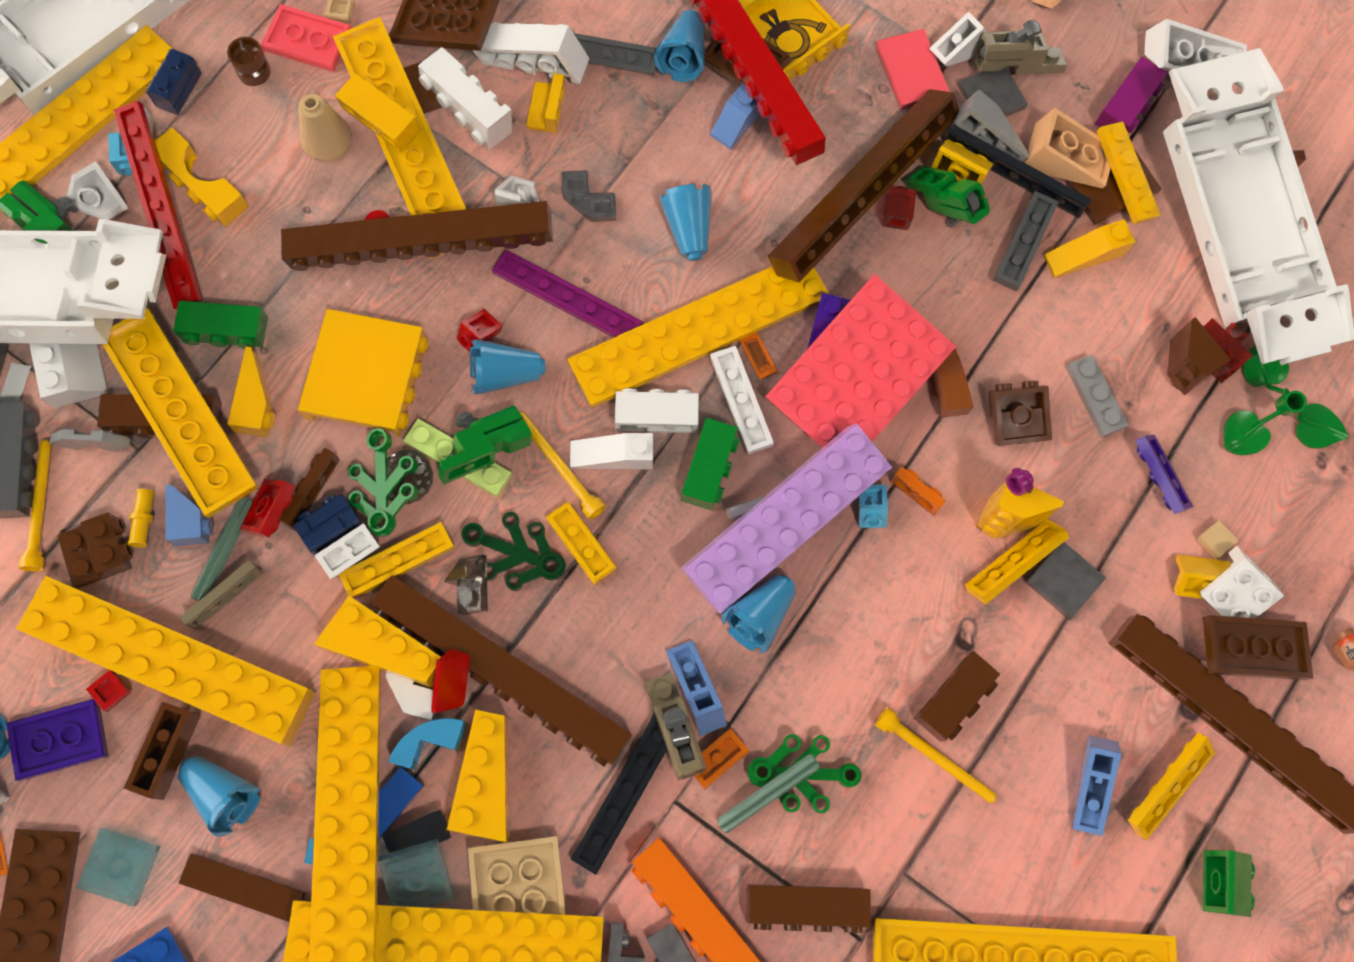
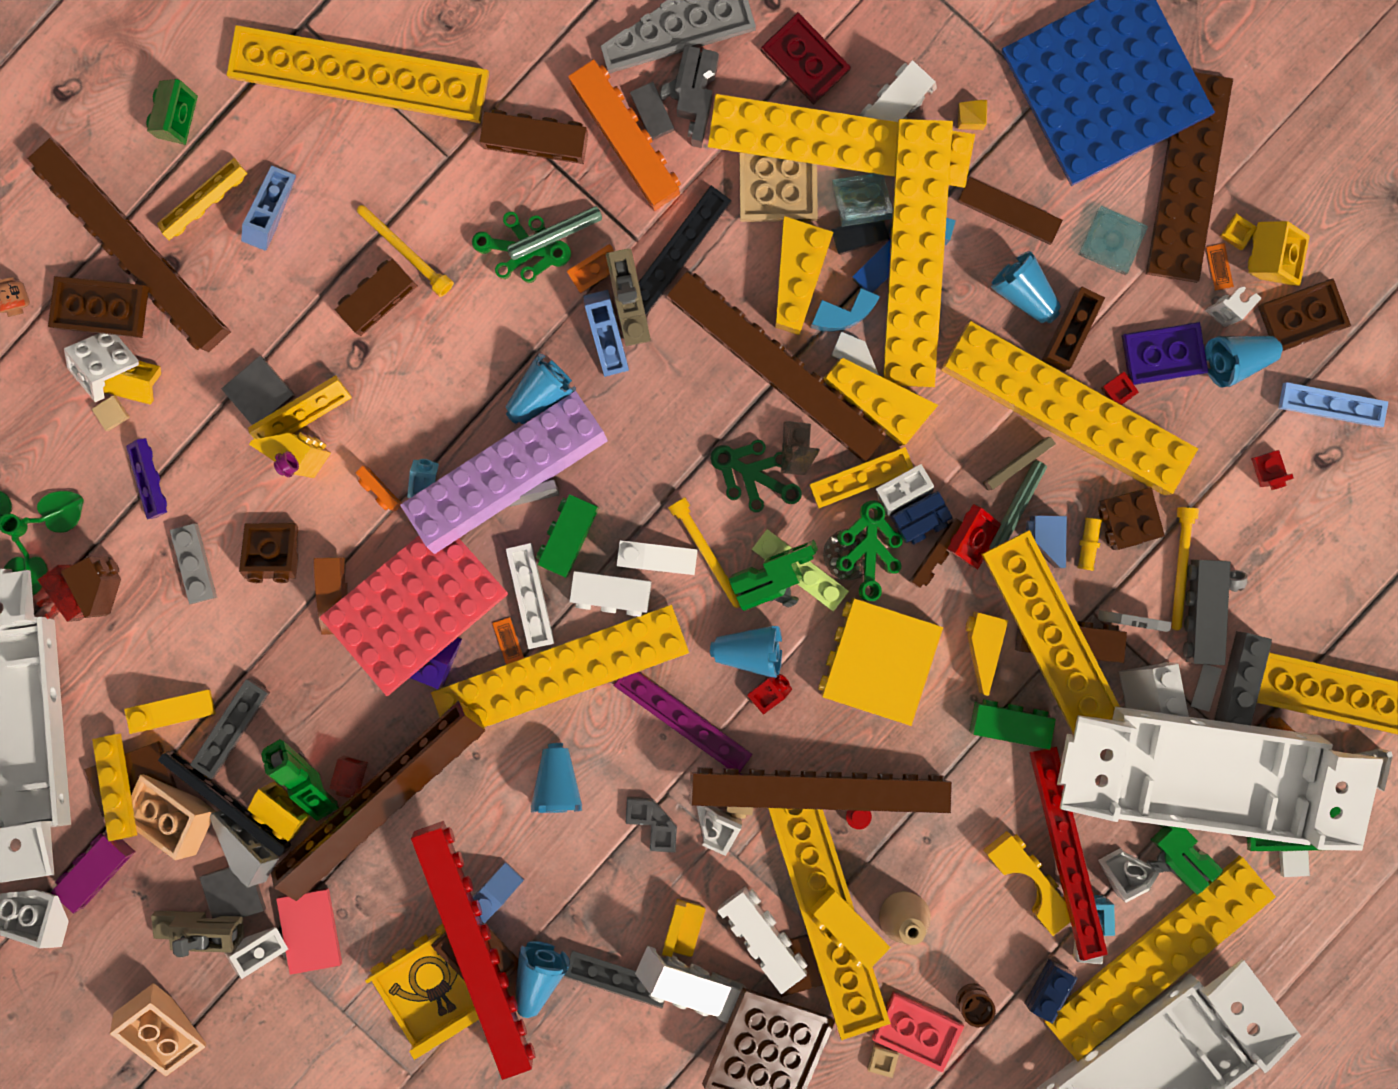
camera: 170 degrees left, 15 degrees up
(450, 681) = (820, 360): red slope -> none
(581, 543) = (694, 476): yellow tile -> none

